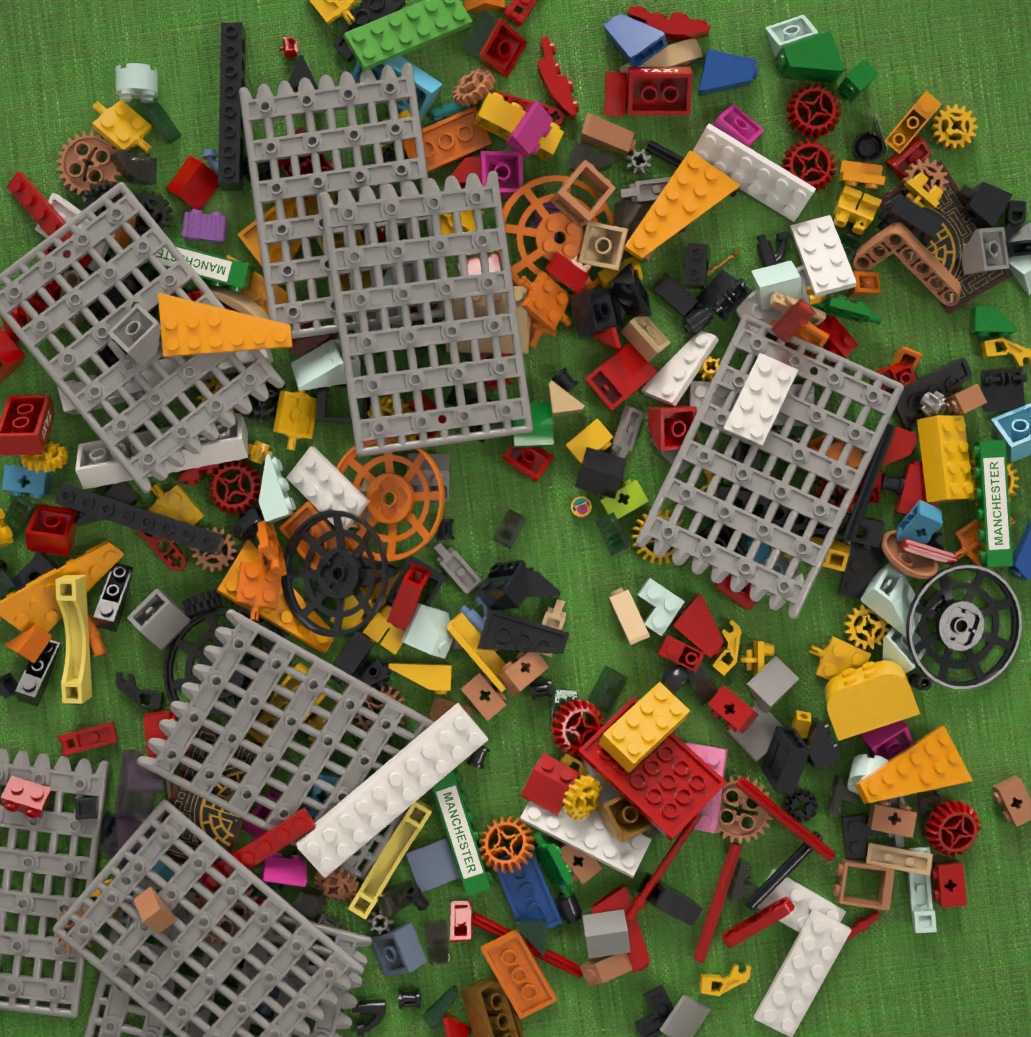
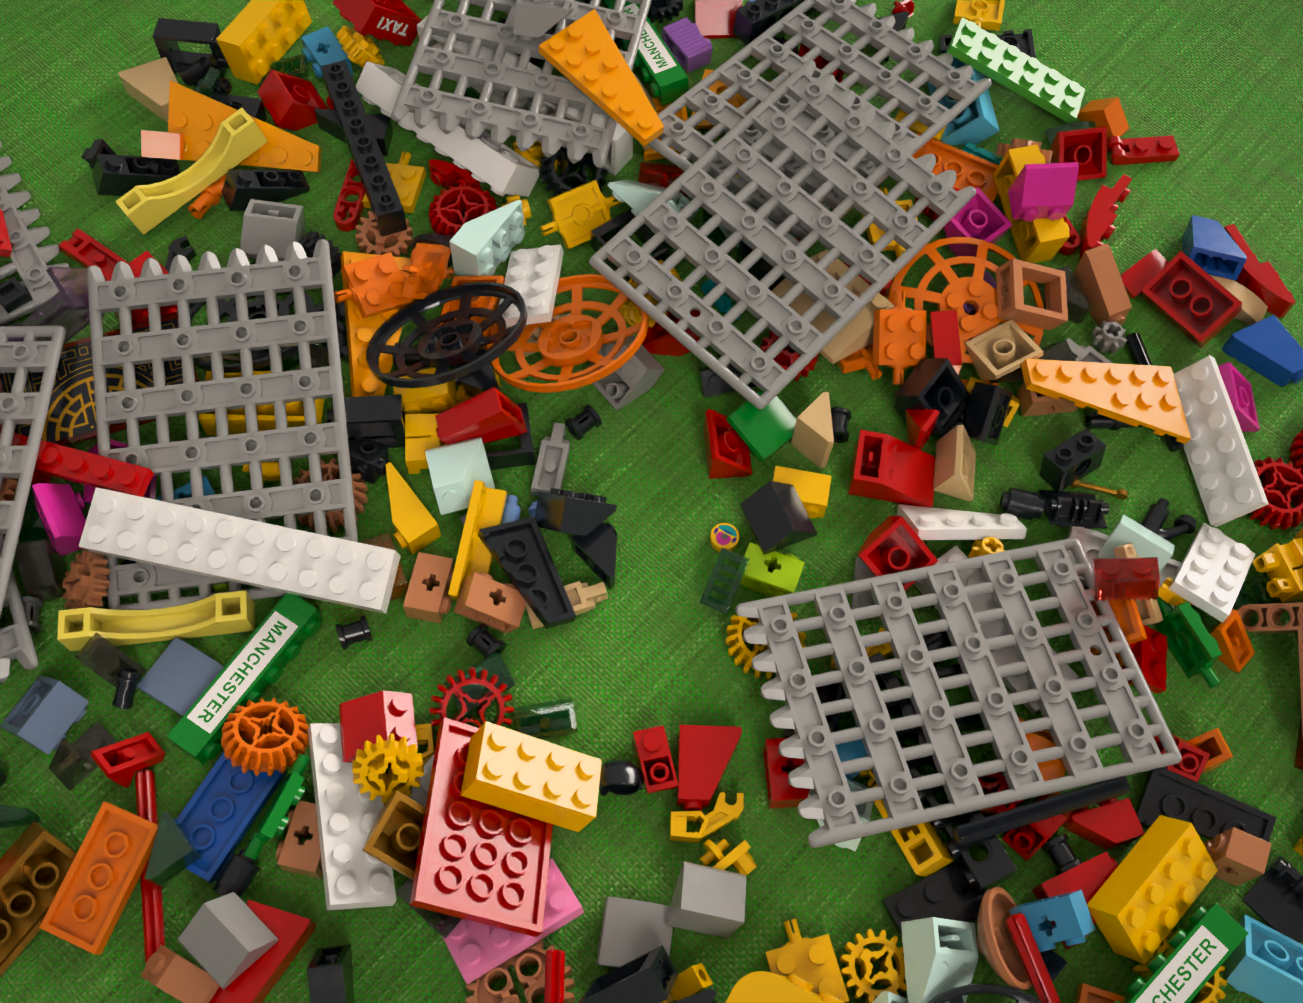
camera: 45 degrees right, 25 degrees down
(381, 926) = (68, 668): light grey gear -> none
(509, 528) = (637, 479): clear smoke slope -> none
(626, 431) = (845, 520): light grey hinge -> none
(628, 616) = (646, 672): tan slope -> none
(641, 900) = (304, 950): red bar -> none
(665, 605) = (691, 703): light aqua brick -> none
(675, 295) = (1023, 464): black slope -> none
(702, 684) = (639, 822): clear smoke slope -> none
(743, 714) = (638, 877): red brick -> none
(761, 399) = (1012, 613): white plate -> none
(933, 404) = (1199, 816): light grey gear -> none

